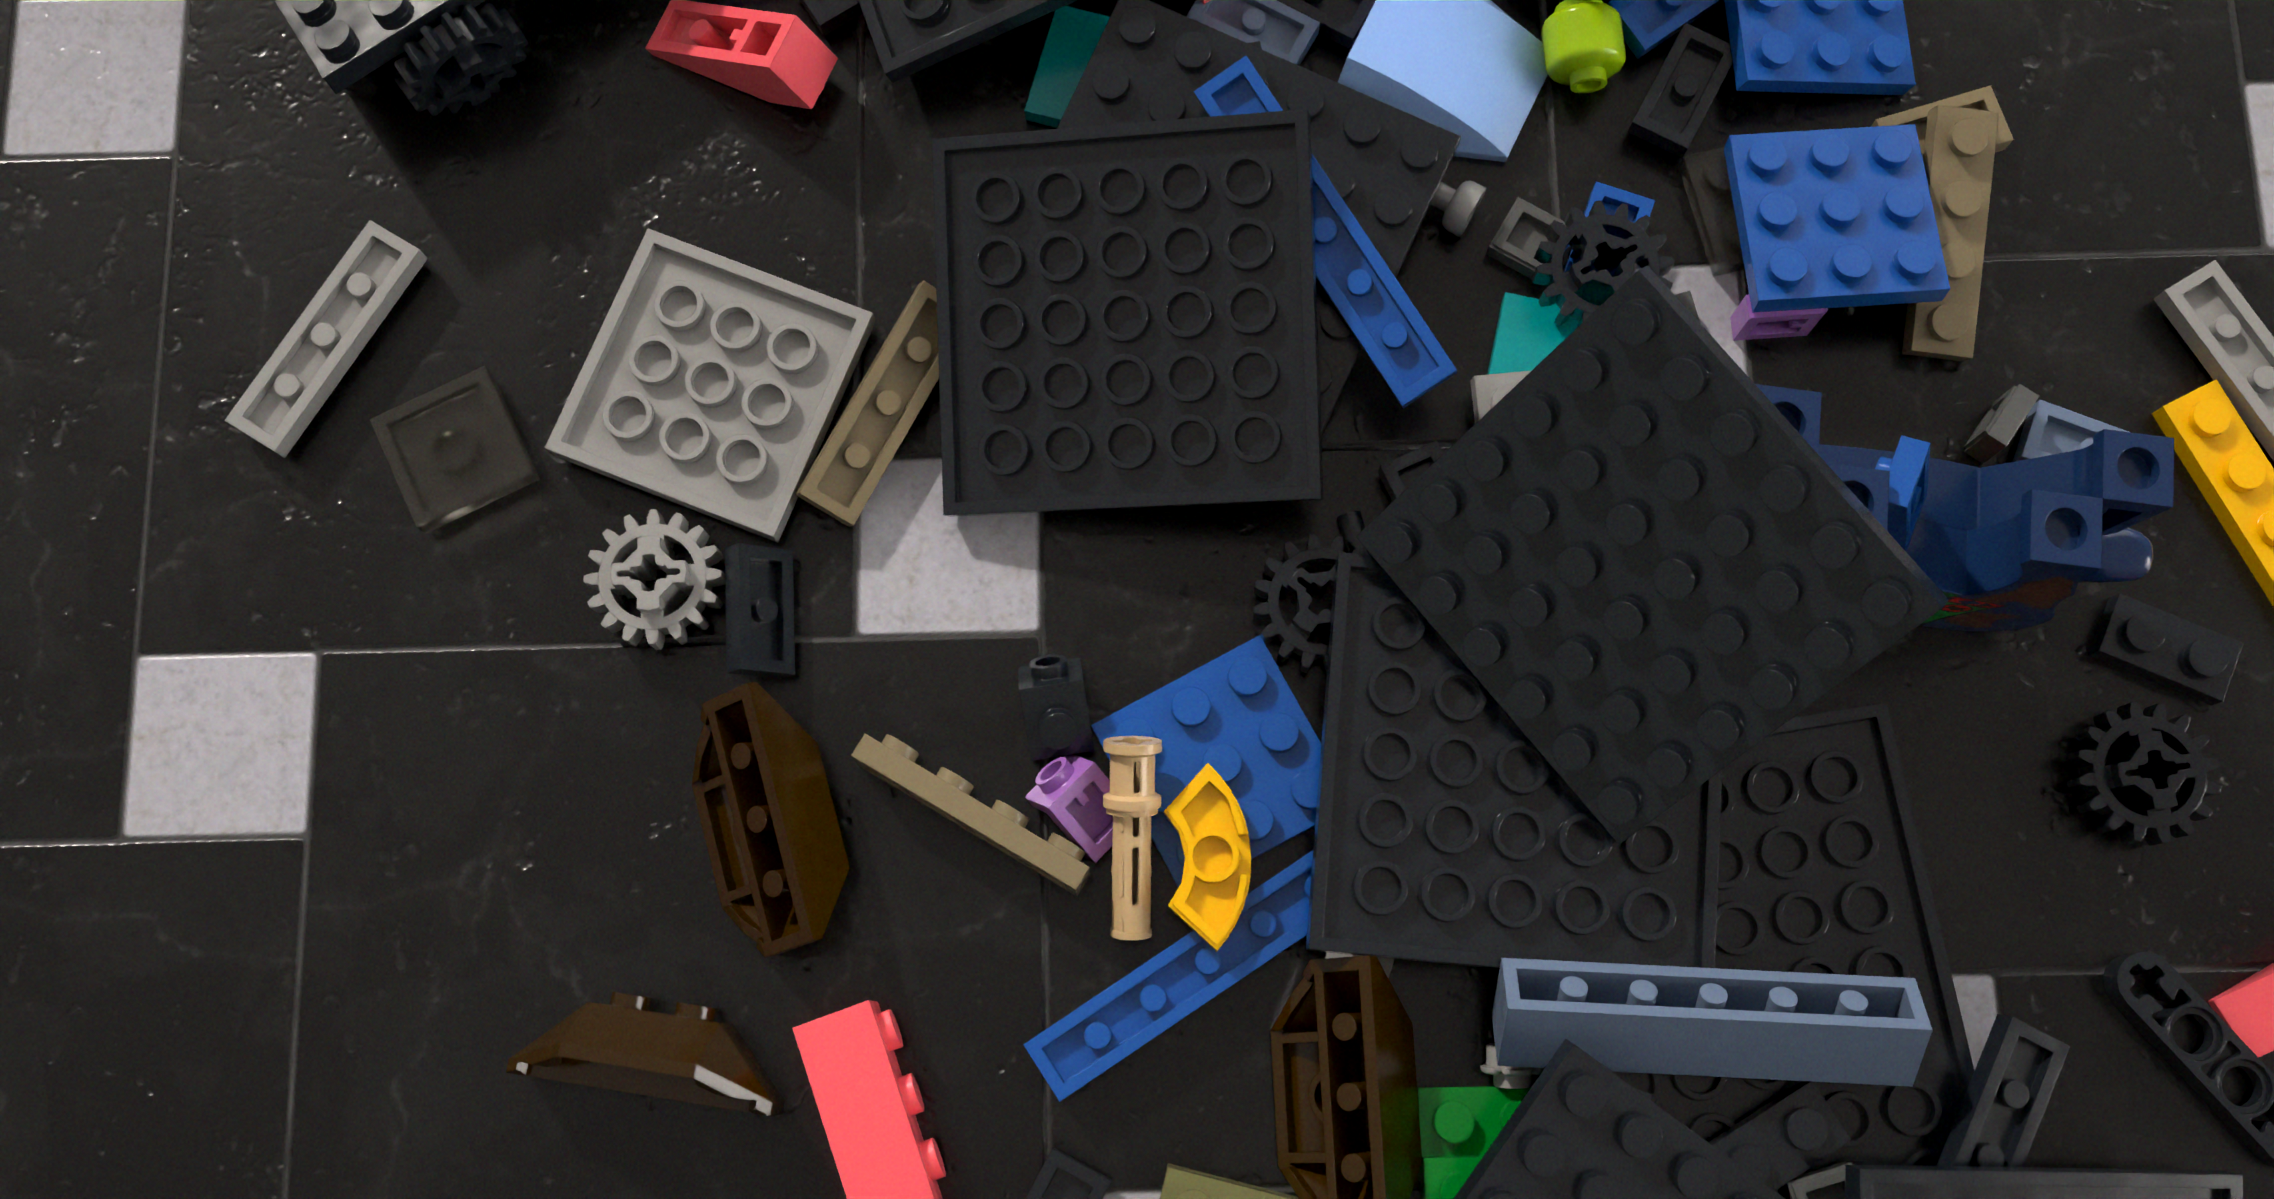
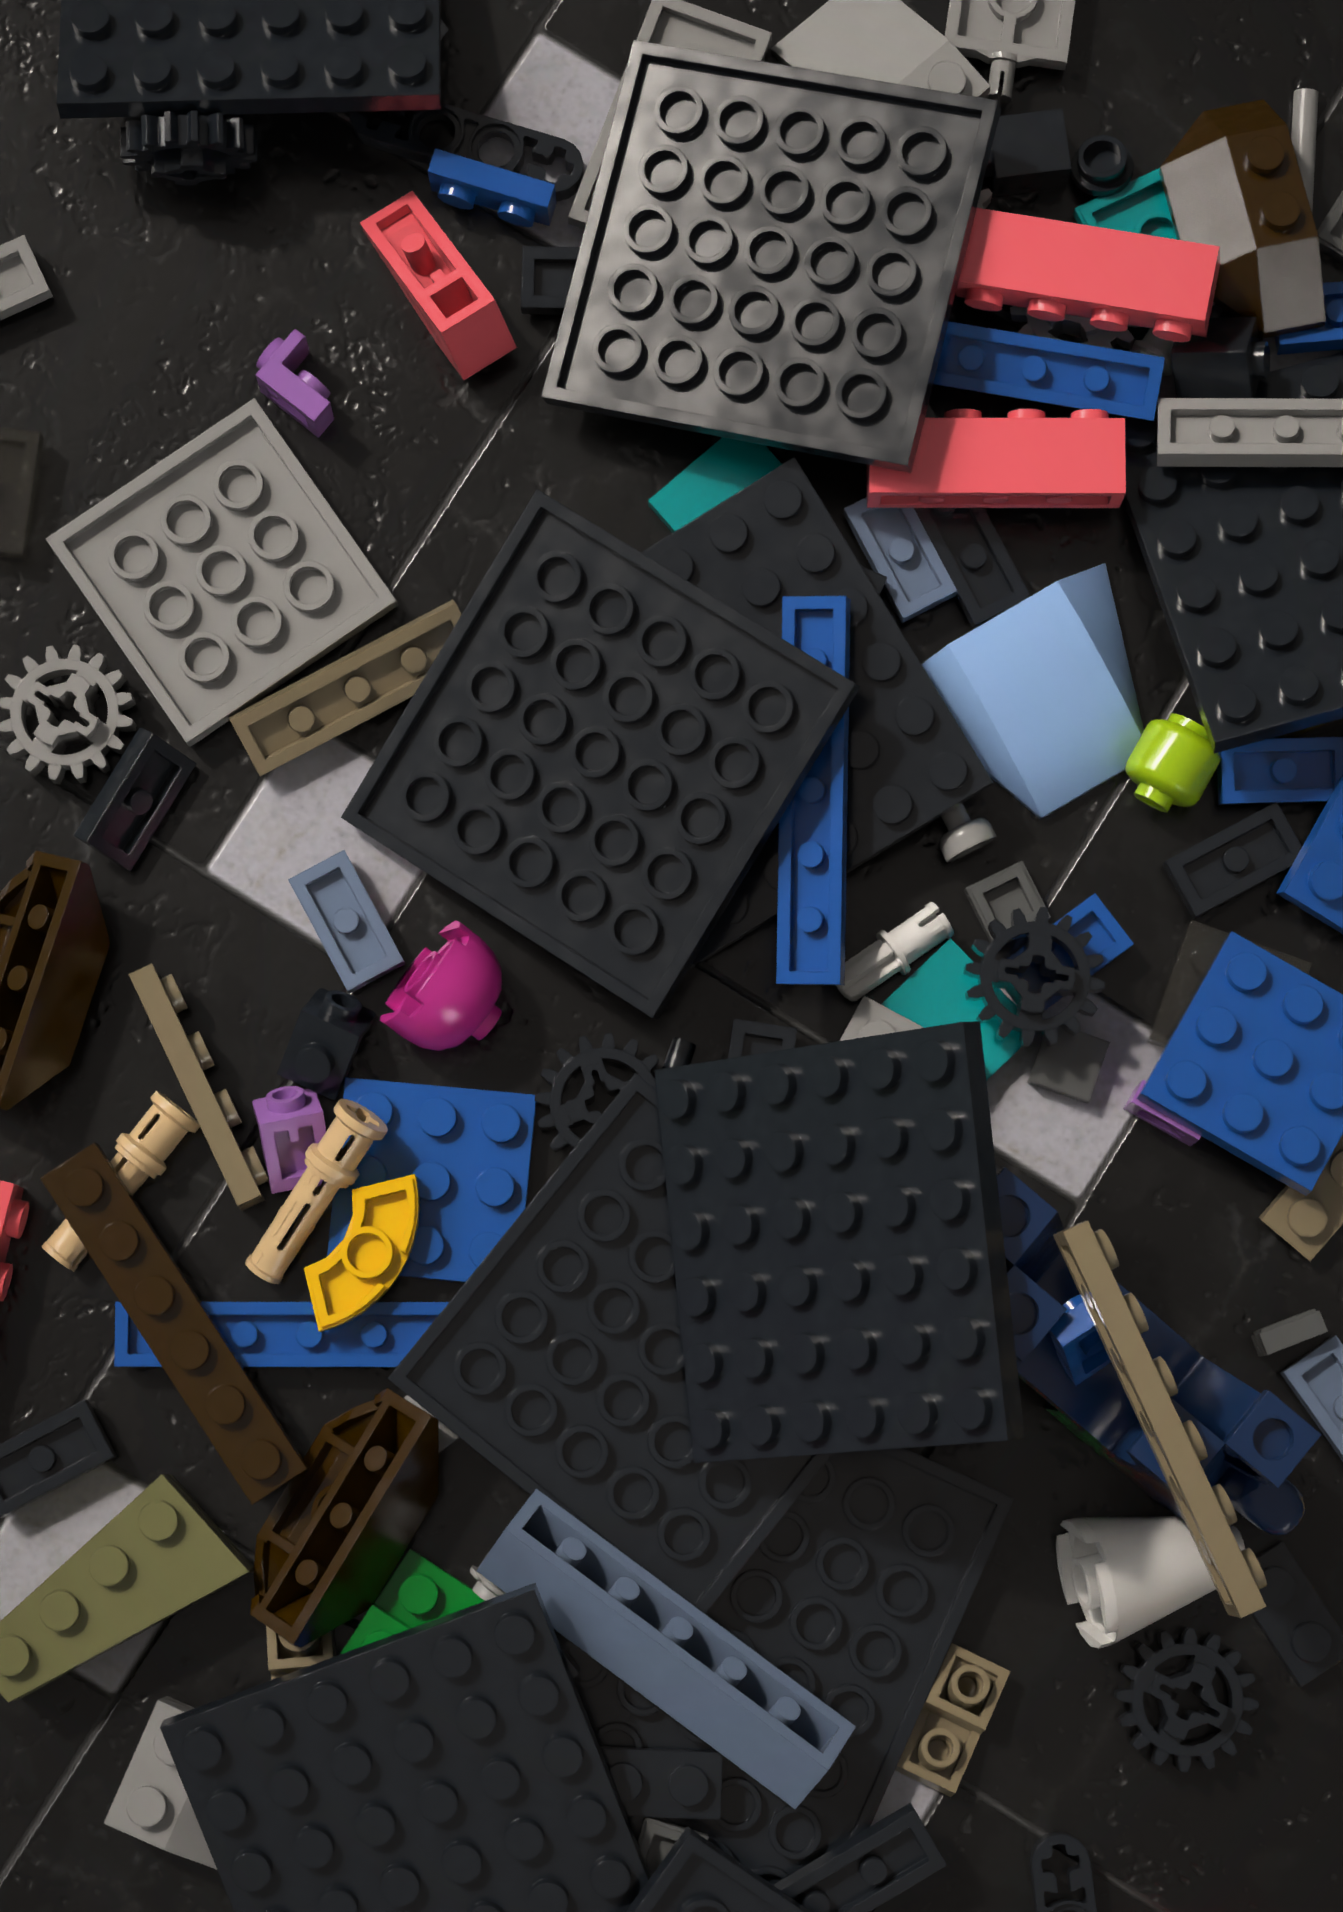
camera: 30 degrees right, 5 degrees up
(678, 206) = (298, 394): none -> medium lavender bracket
(960, 908) = (138, 1157): none -> tan pin
(1005, 596) = (346, 921): none -> sand blue plate
(1089, 1028) = (174, 1323): none -> dark brown plate
(1131, 597) = (447, 992): none -> dark pink cylinder
(1470, 328) = (895, 951): none -> white axle
(1968, 918) = (952, 1720): none -> dark tan slope
(2030, 694) = (1129, 1572): none -> white cone
(2048, 509) = (1174, 1443): none -> dark tan plate

